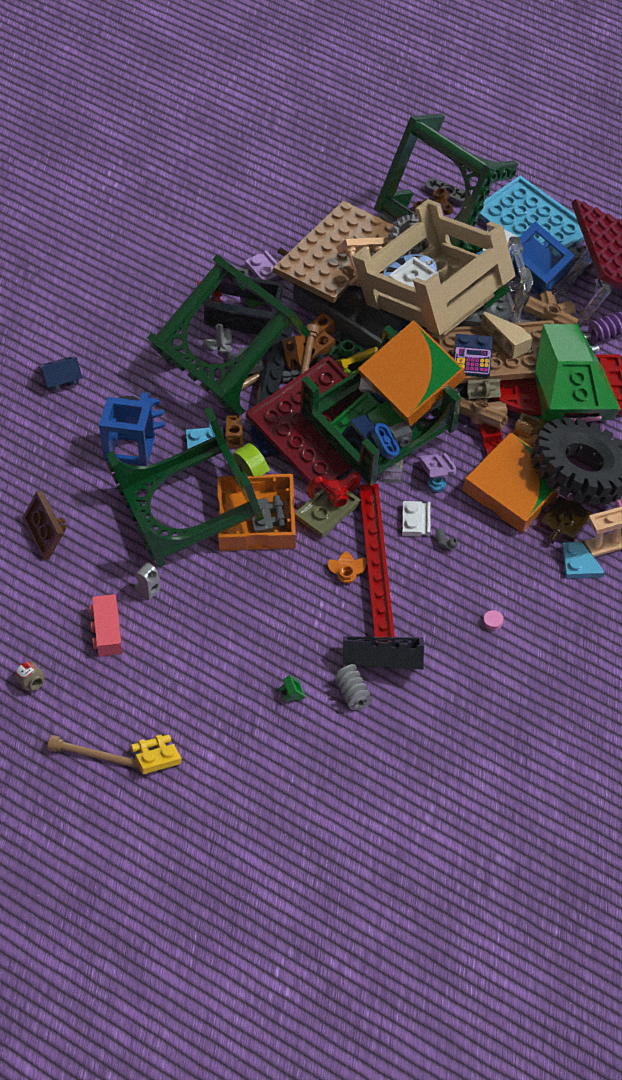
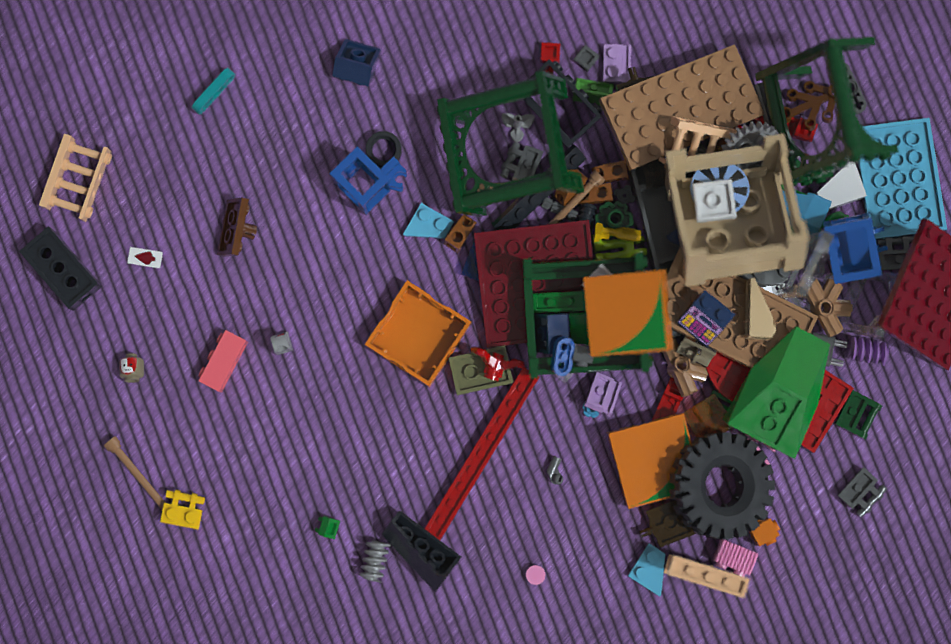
camera: 35 degrees right, 30 degrees up
(138, 478) = (303, 315): dark green arch -> none
(251, 460) = (448, 277): lime brick -> none
(266, 525) = (420, 341): dark grey plate -> none
(347, 566) = (456, 436): orange plate -> none
(416, 518) = (548, 431): white plate -> none

